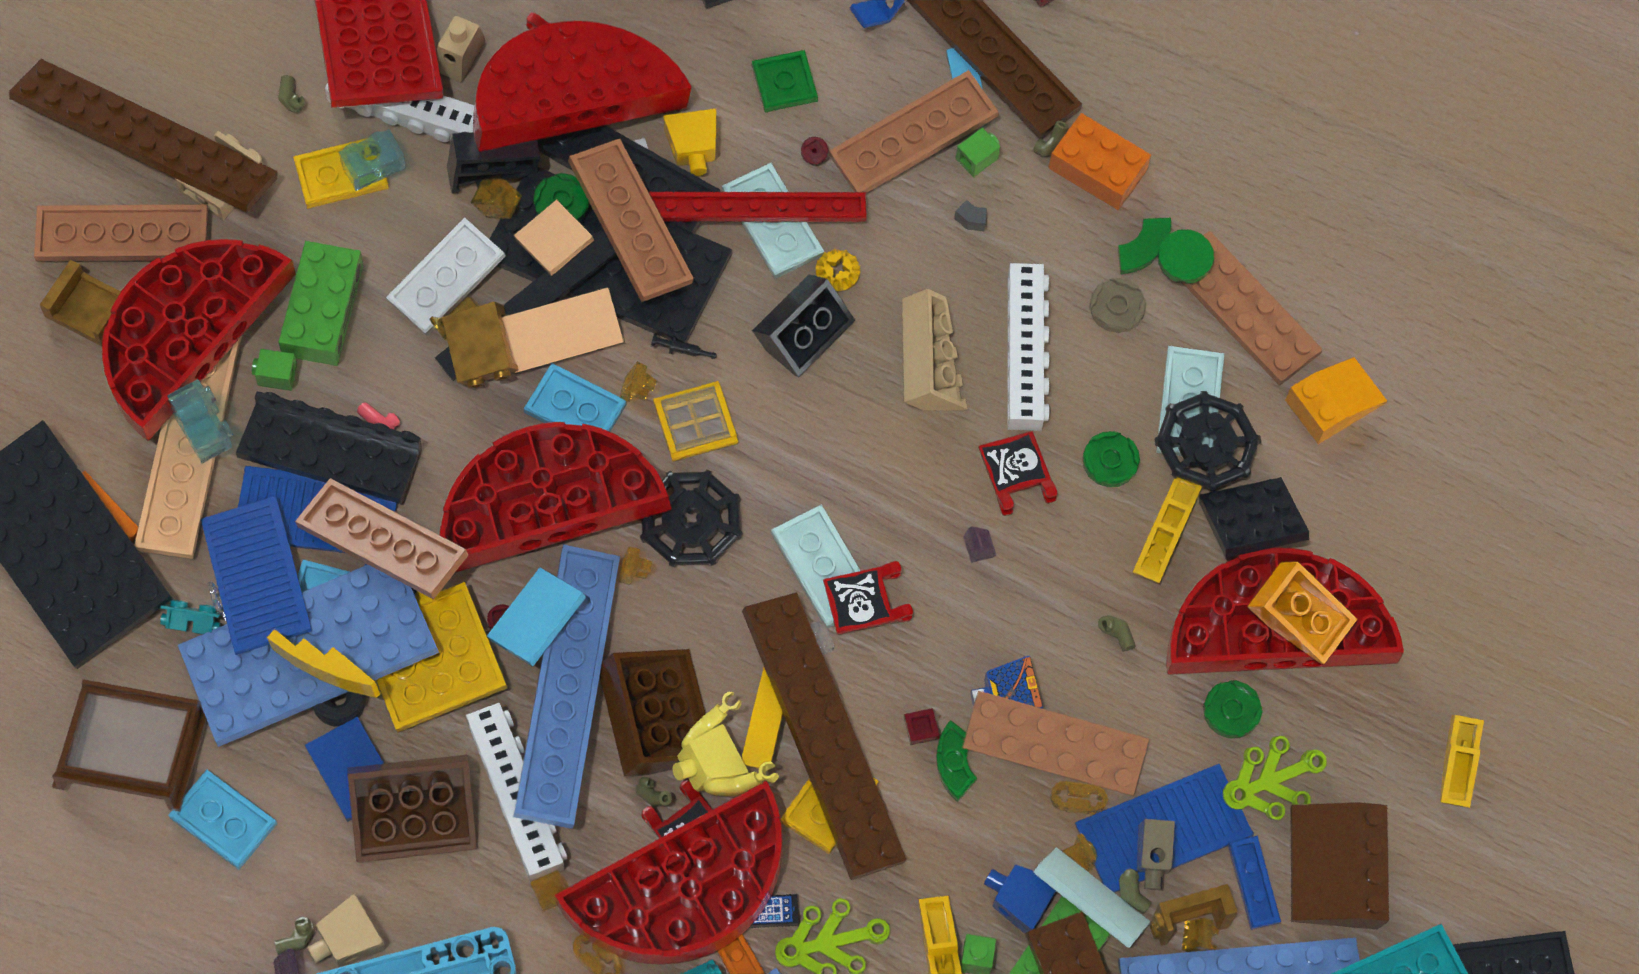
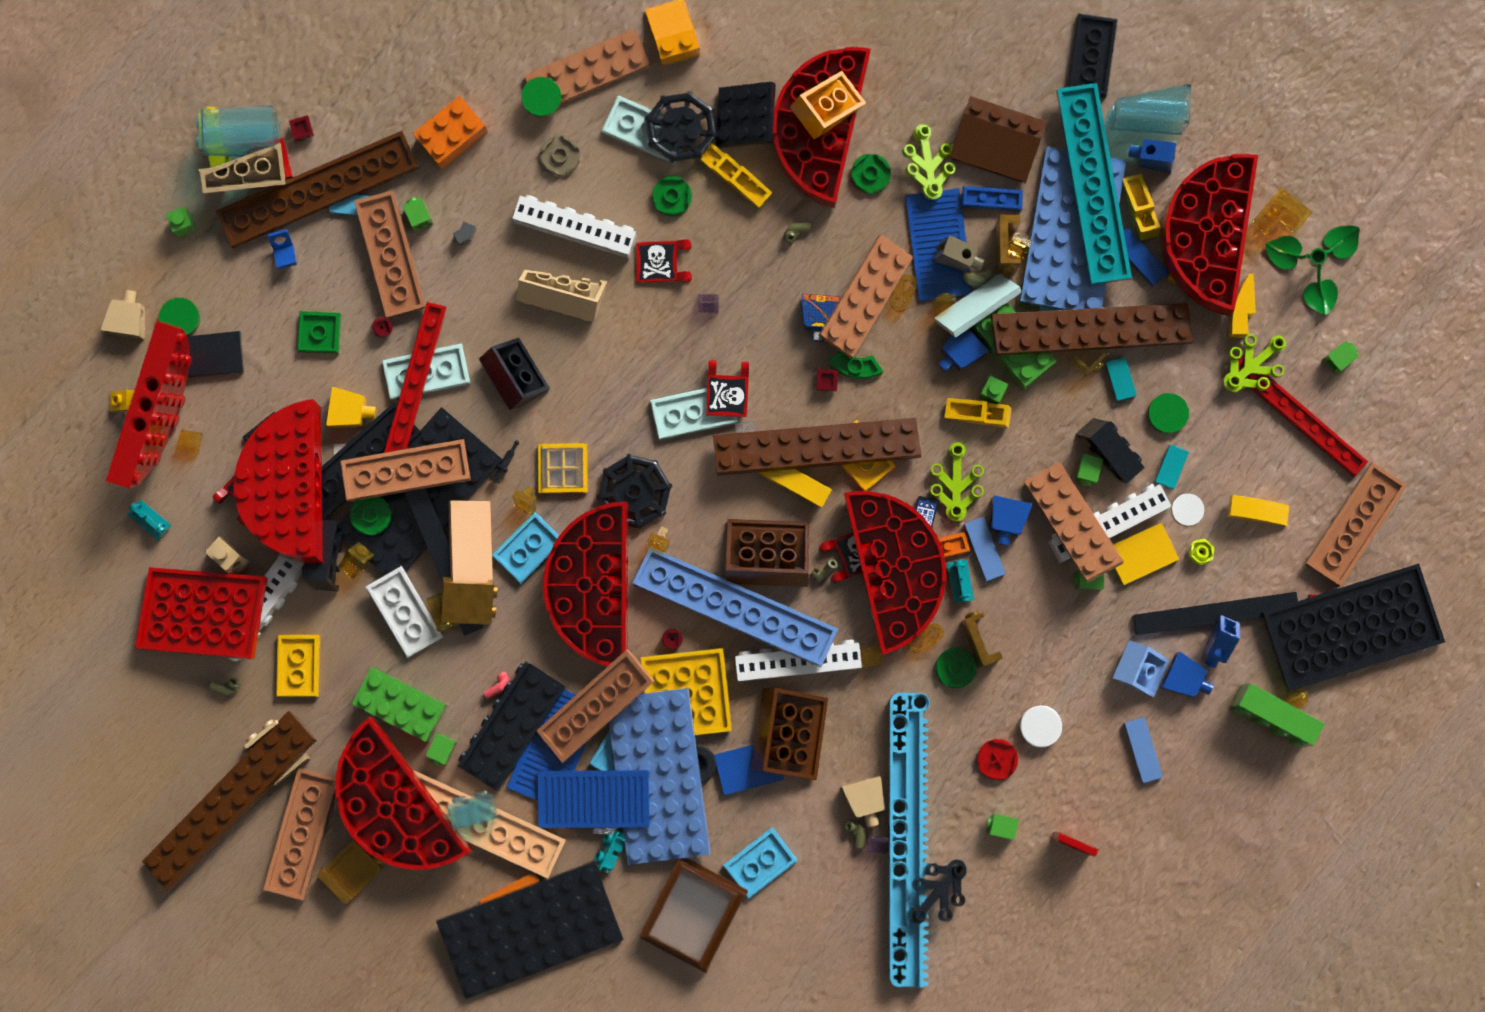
camera: 70 degrees left, 15 degrees up
(330, 668) = (684, 763): yellow slope -> none
(366, 172) = (307, 649): clear light blue brick -> none
(536, 616) = (682, 615): medium azure tile -> none
(554, 237) = (401, 528): light nougat tile -> none
(712, 759) = (815, 524): light yellow torso -> none
(842, 280) = (477, 347): yellow gear -> none
(1046, 148) = (424, 159): olive arm -> none
(1144, 248) = (522, 121): green tile -> none
(1461, 760) = (948, 38): yellow slope -> none

